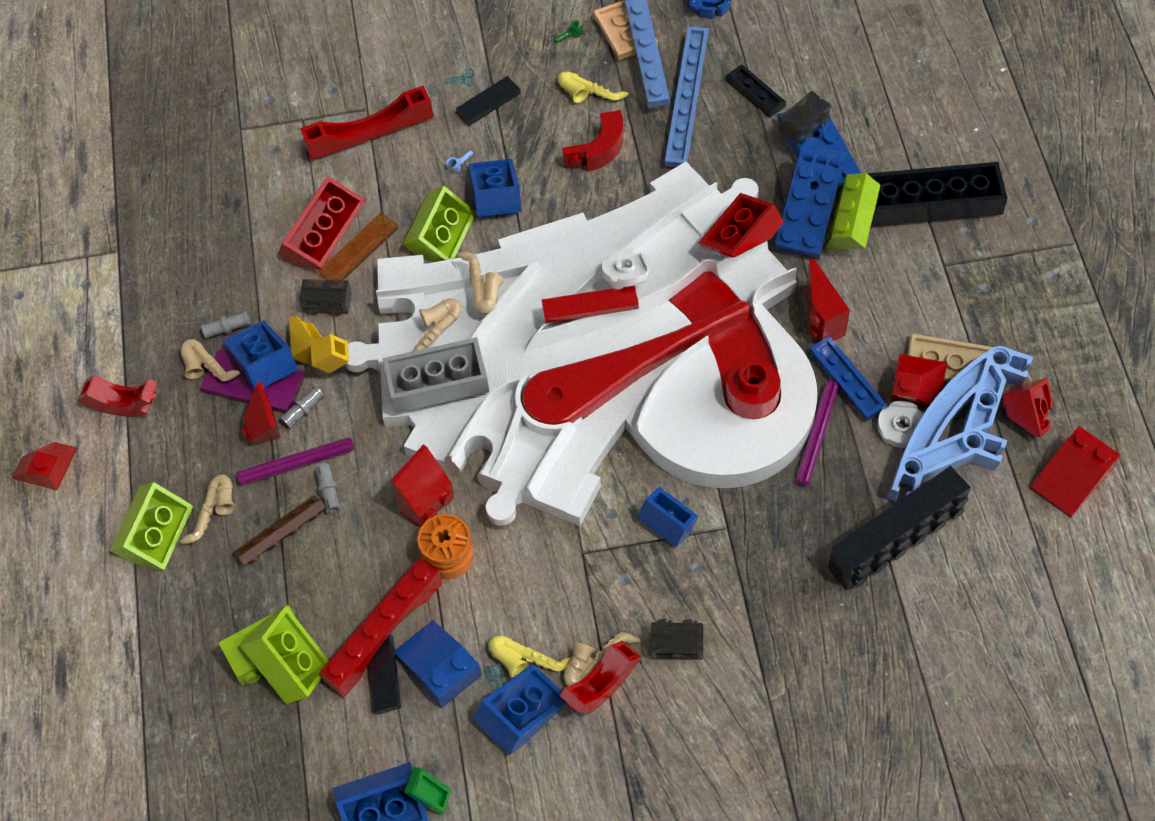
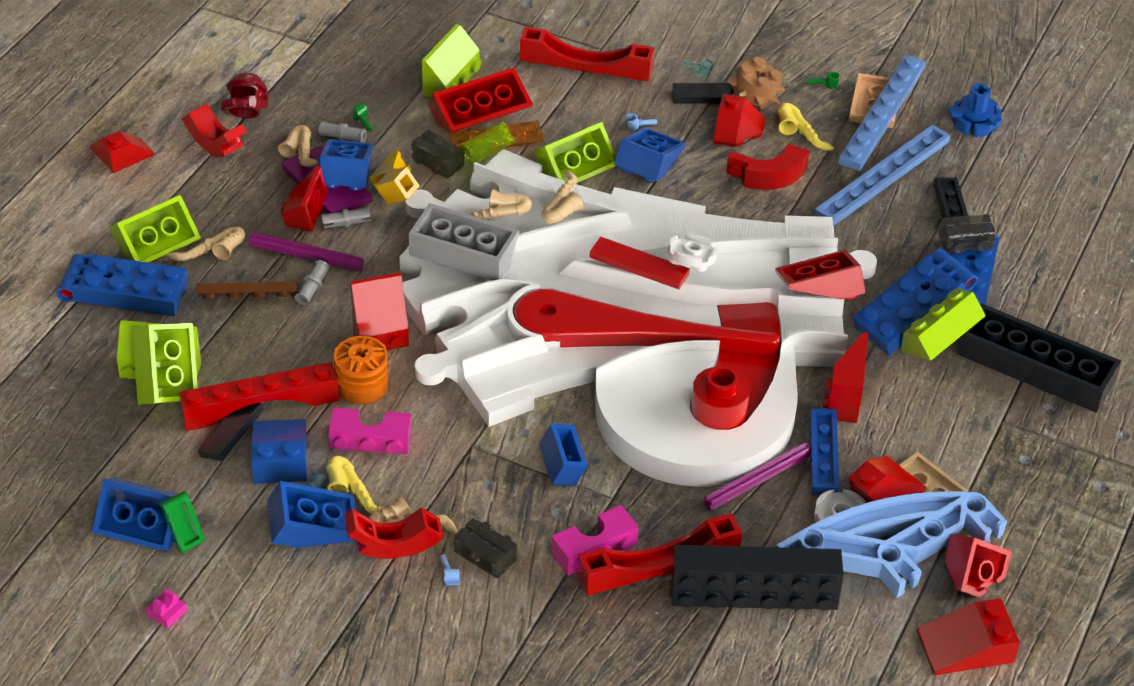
camera: 30 degrees right, 15 degrees down
(116, 342) = (247, 96): none -> dark red helmet
(179, 593) = (123, 284): none -> blue hinge
(222, 297) = (360, 114): none -> green hand
(266, 204) = (450, 62): none -> slope
(362, 262) = (487, 143): none -> clear neon green brick
(483, 610) = (389, 436): none -> dark pink arch
(527, 70) = (757, 82): none -> medium nougat brick
(537, 115) = (737, 121): none -> red slope
(669, 684) = (451, 576): none -> light blue hand
(744, 595) = (615, 532): none -> dark pink arch
(799, 576) = (611, 569): none -> red arch

